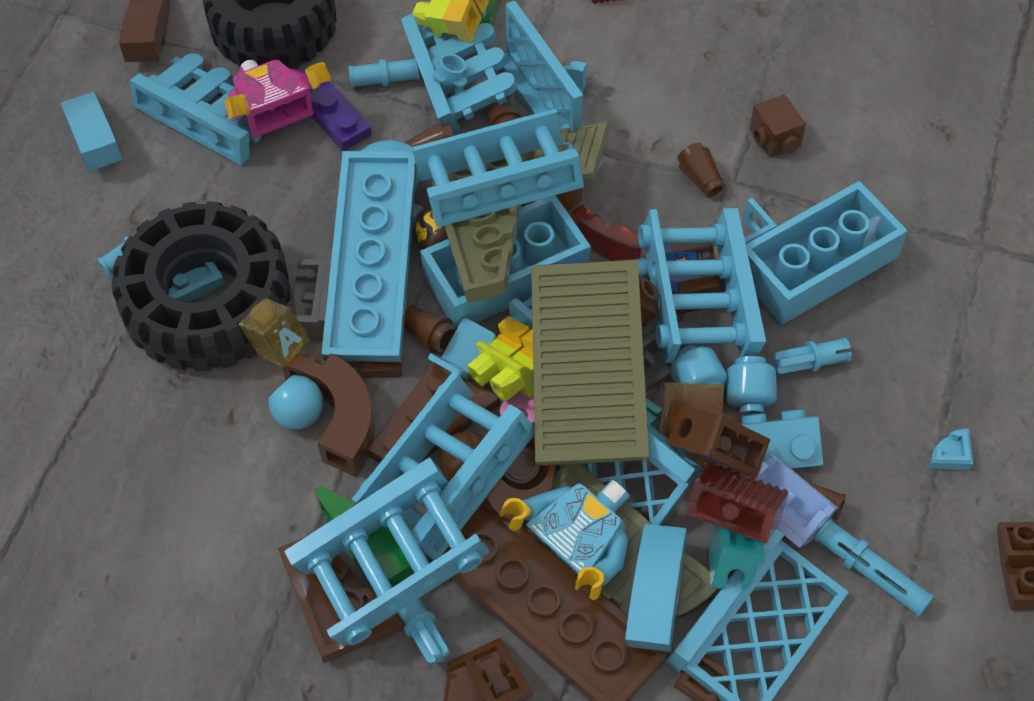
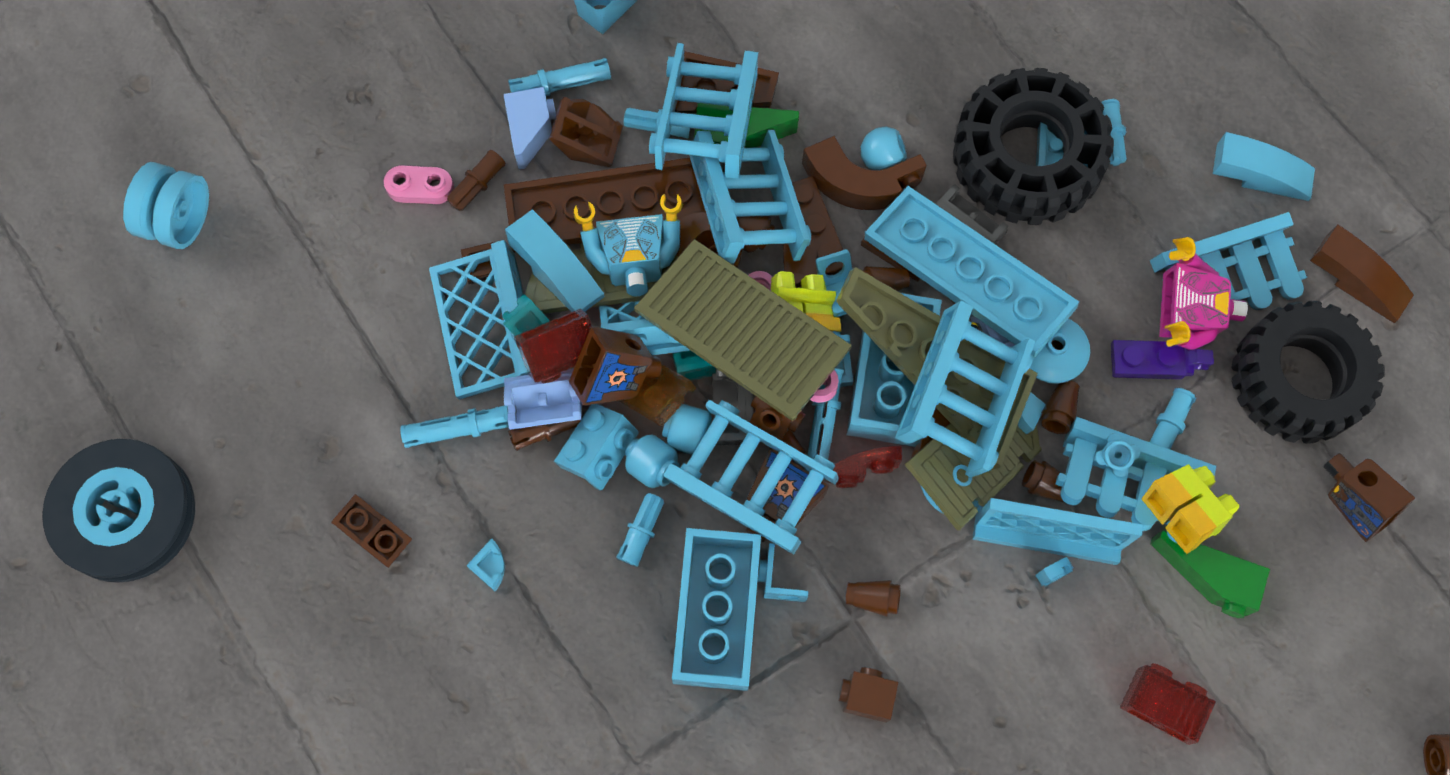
camera: 125 degrees right, 15 degrees up
(274, 331) = (942, 154): clear yellow brick -> none

